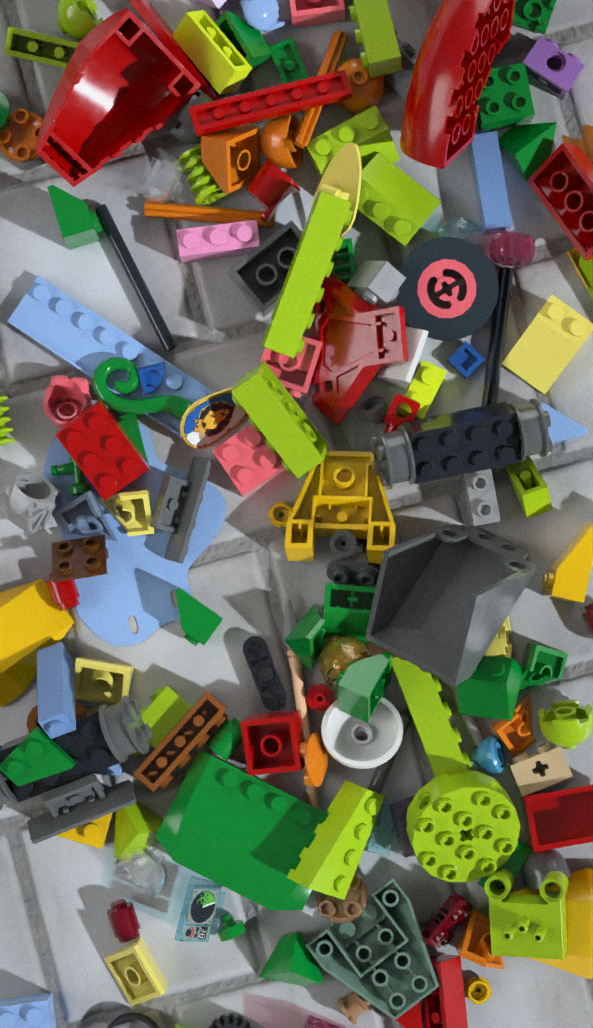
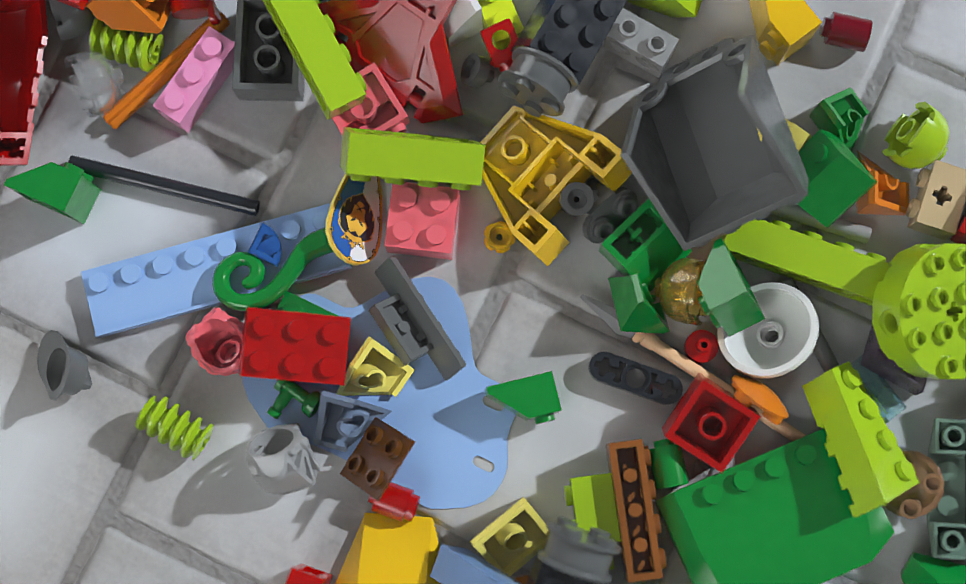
camera: 40 degrees left, 5 degrees down
(490, 755) = (888, 234): dark azure brick -> none

